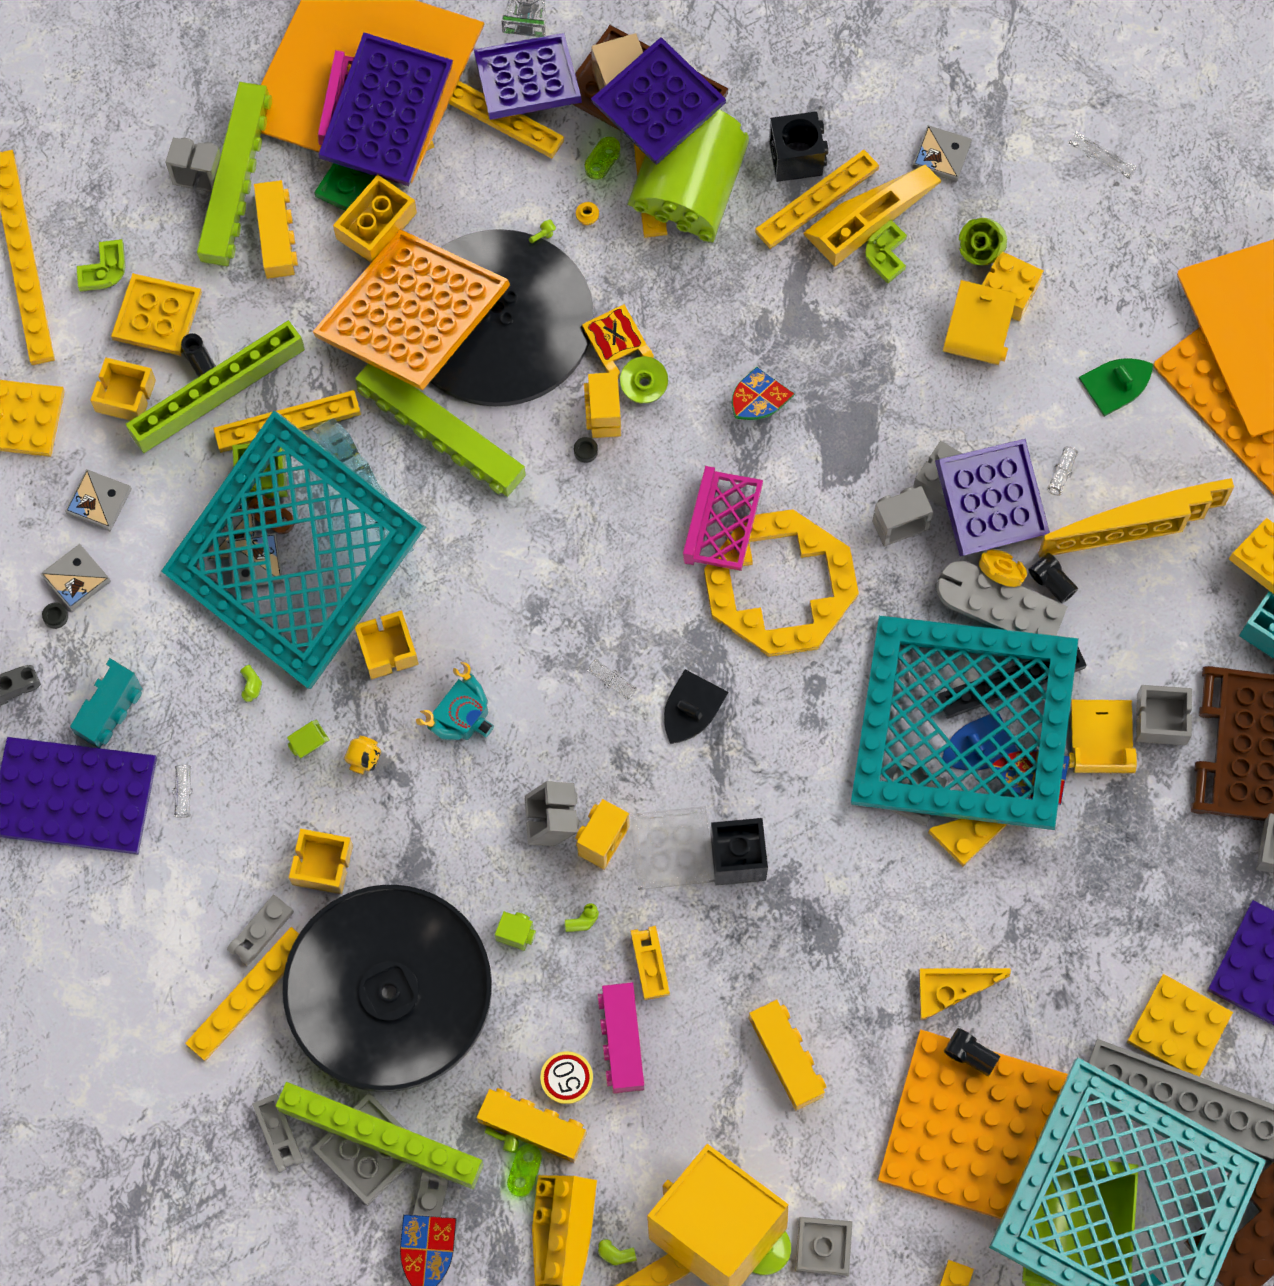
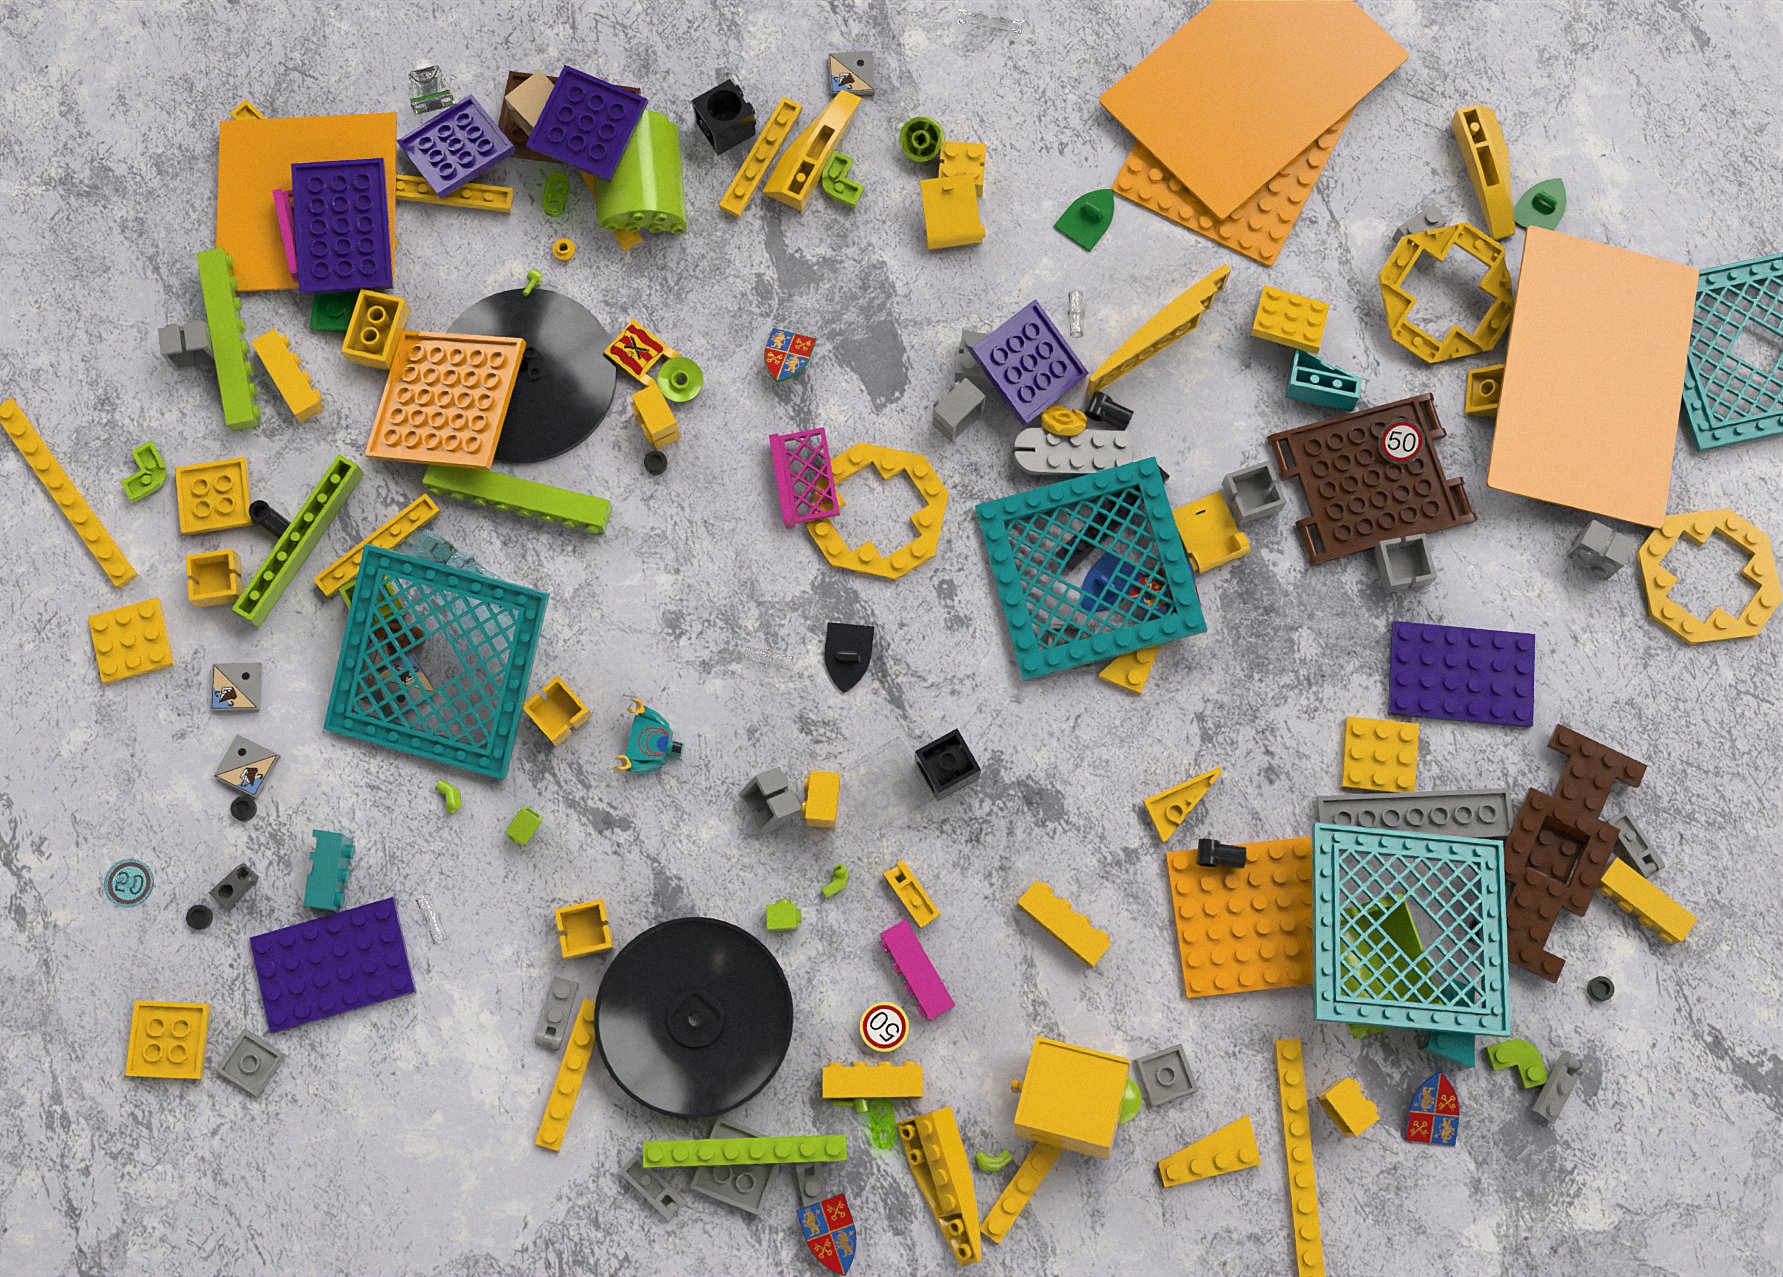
camera: 25 degrees left, 5 degrees up
(362, 754) = (579, 818): yellow head -> none

